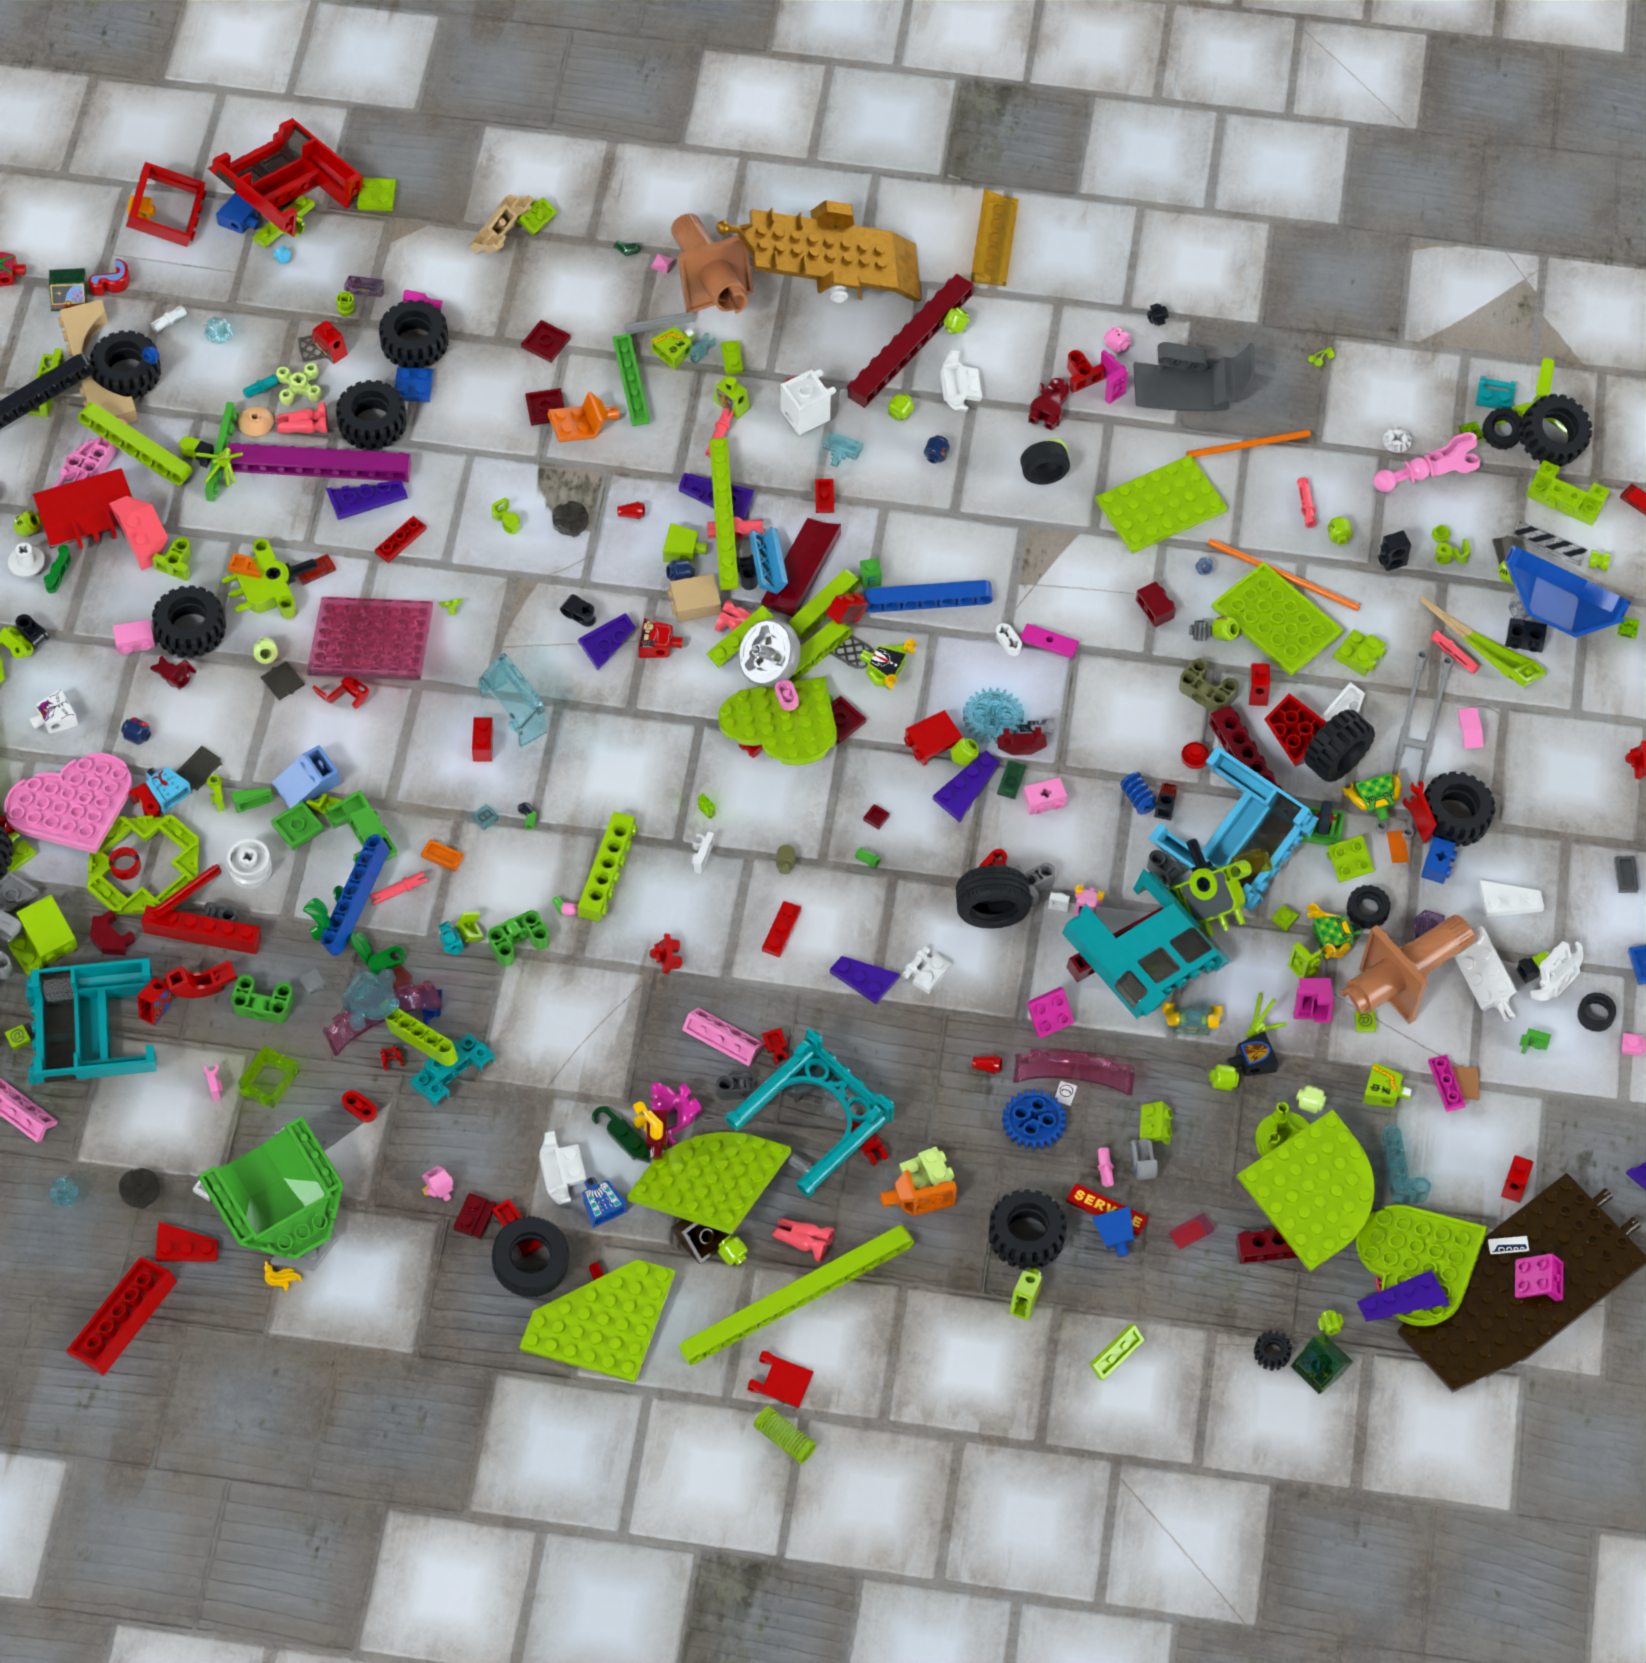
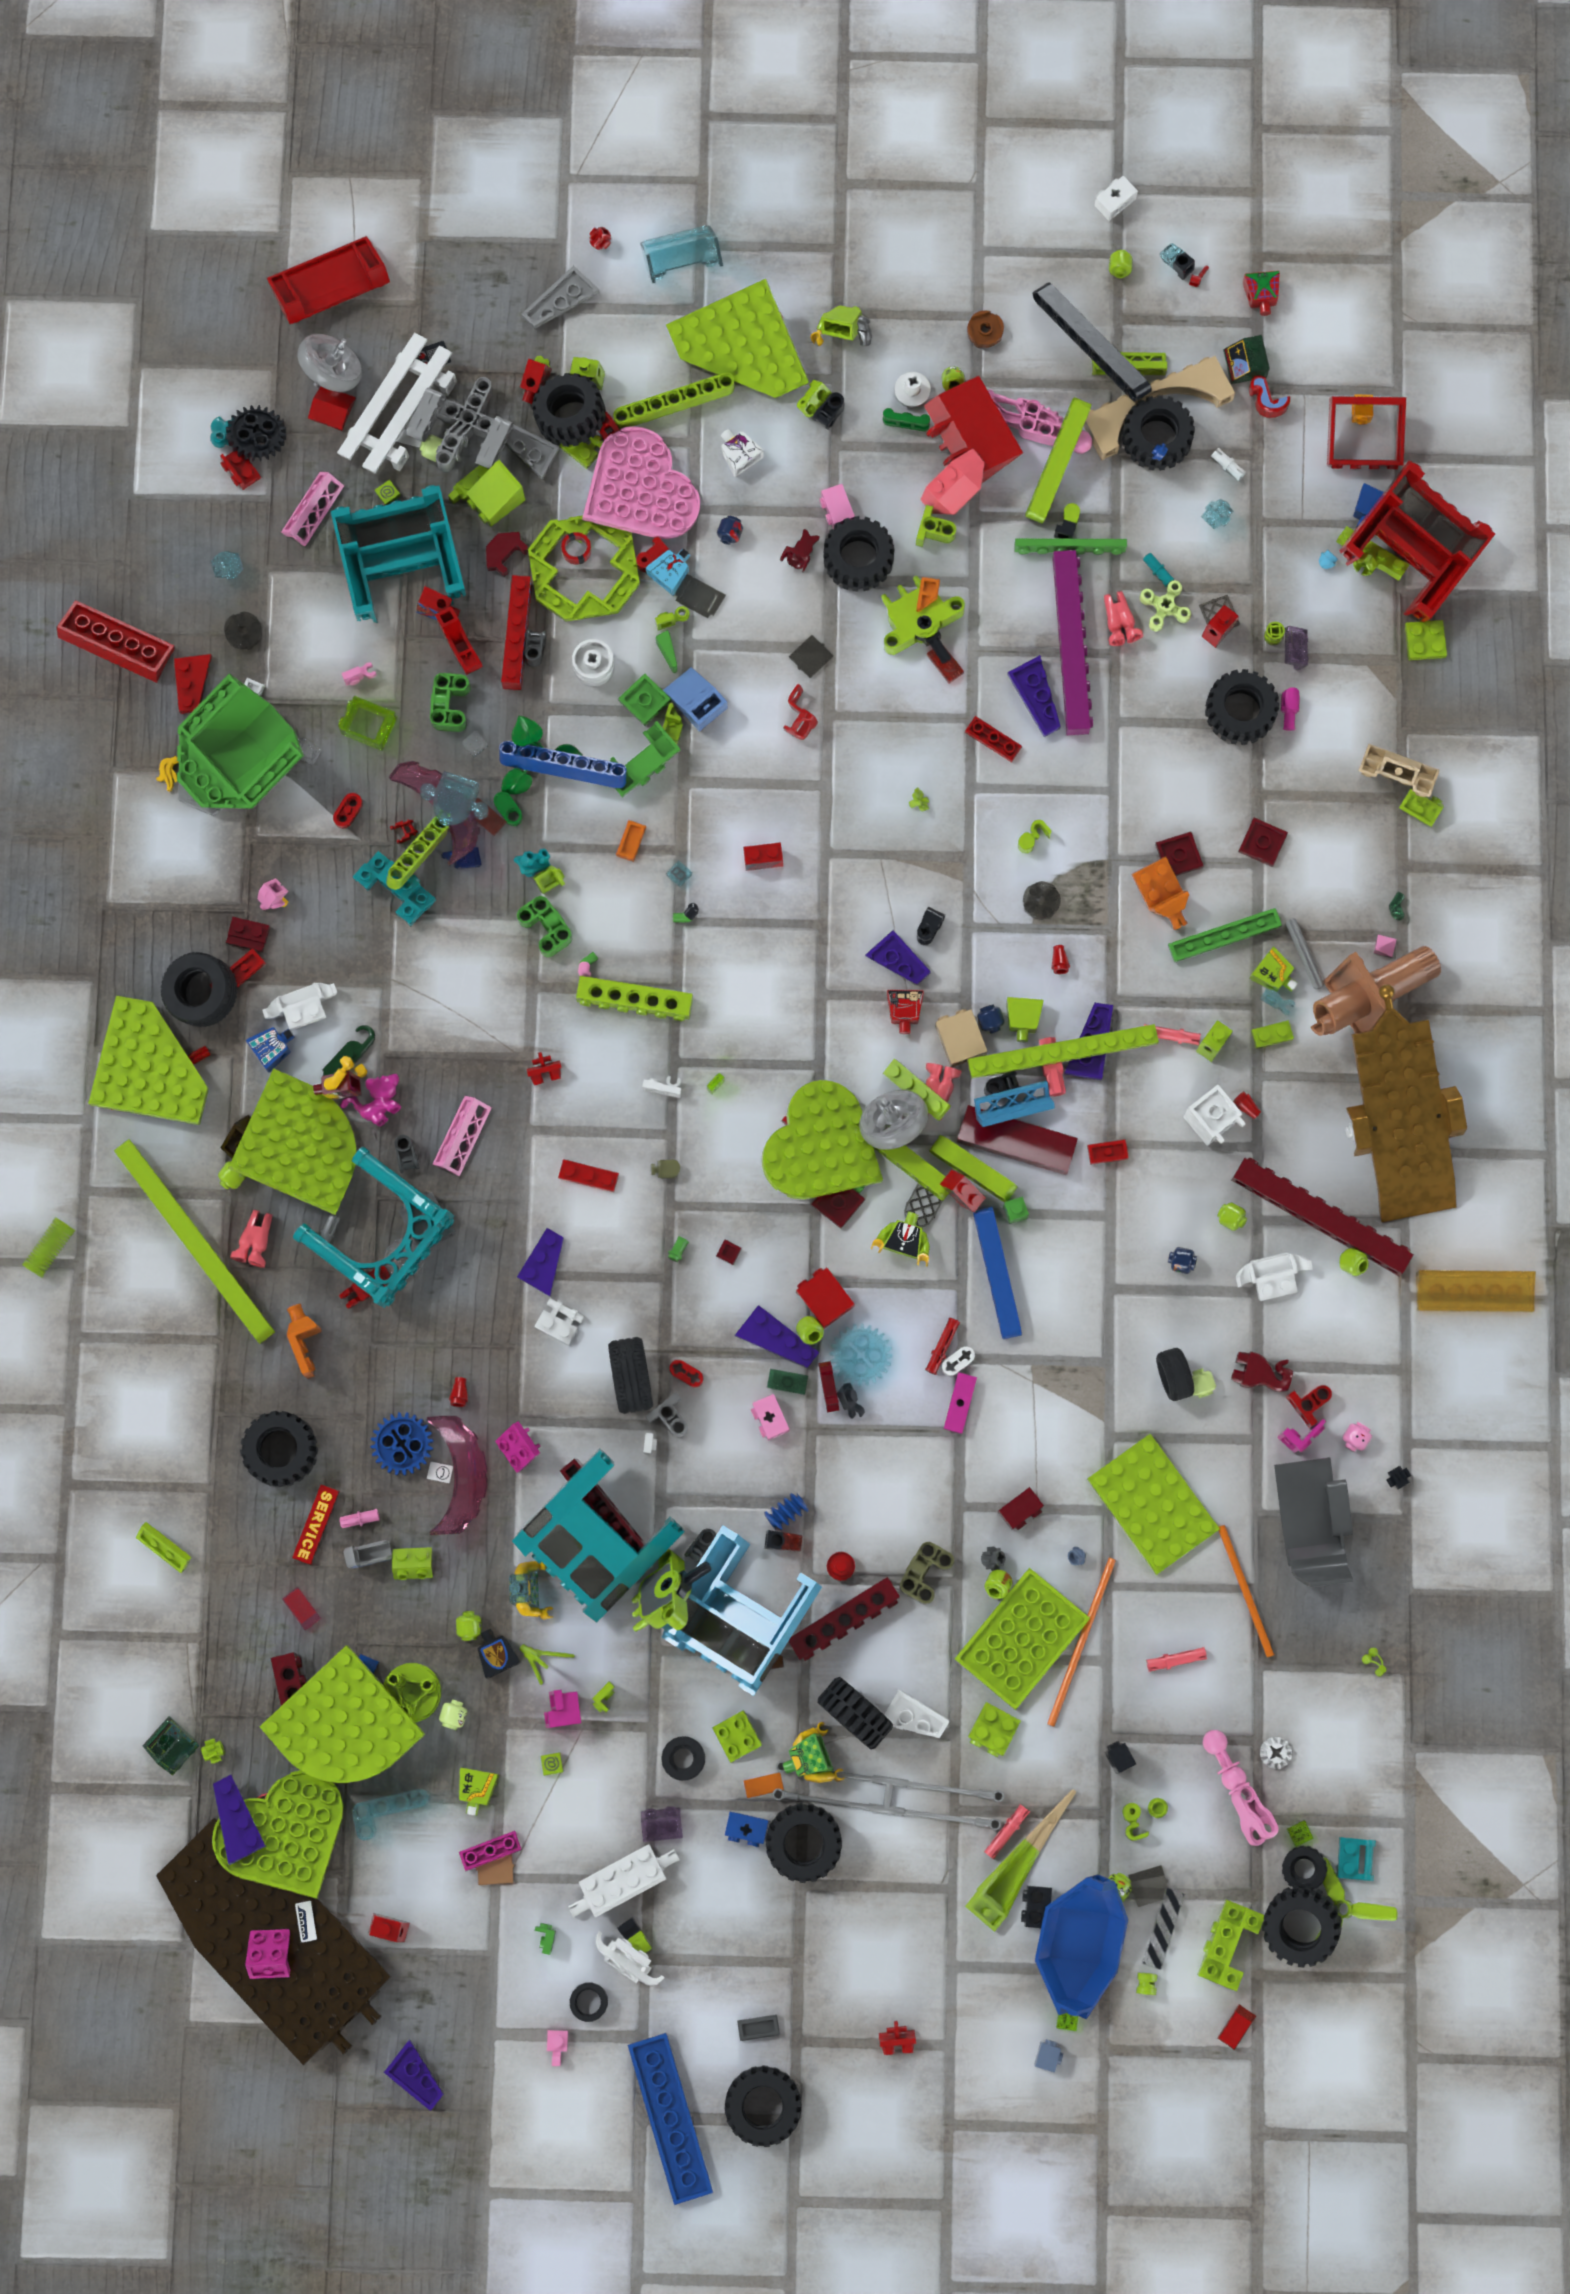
camera: 85 degrees right, 20 degrees up
(186, 891) = (551, 610): red axle -> none
(223, 460) = (1051, 548): lime plant -> none
(255, 427) = (1112, 580): light nougat dish -> none
(265, 650) = (836, 632): yellowish green head -> none
(370, 638) = (860, 728): clear pink plate -> none
(371, 433) = (1141, 660): black tyre -> none
(398, 888) = (591, 811): coral pin -> none
(414, 383) = (1186, 718): blue plate -> none
(516, 697) = (802, 874): clear light blue windscreen -> none
(775, 1042) = (458, 1185): red plate -> none
(784, 1381) = (107, 1241): red flag -> none
(786, 695) = (843, 1142): bright pink plate -> none
(841, 448) = (1171, 1162): clear light blue hinge -> none
(928, 1168) = (334, 1347): yellowish green plate -> none
(998, 652) = (942, 1346): none -> red pin
(1029, 1288) = (206, 1451): lime torso -> none
(1087, 897) = (653, 1472): bright pink piece -> none
(1116, 1230) = (288, 1533): blue torso -> none
(1257, 858) = (710, 1632): clear yellow slope -> none
(1259, 678) = (934, 1625): red torso -> none
(1270, 1361) = (169, 1692): black tyre -> none
(1285, 917) = (662, 1674): lime plate -> none
(1294, 727) = (880, 1668): red wedge -> none
(1328, 827) = (773, 1705): bright green plate -> none
(1332, 932) = (644, 1724): torso -> none
(1339, 530) = (1141, 1697): lime head -> none
(1401, 973) = (598, 1798): nougat piece -> none
(1420, 812) = (805, 1798): red flag -> none
(1471, 727) = (913, 1853): bright pink slope -> none
(1508, 899) = (712, 1903): white wing -> none

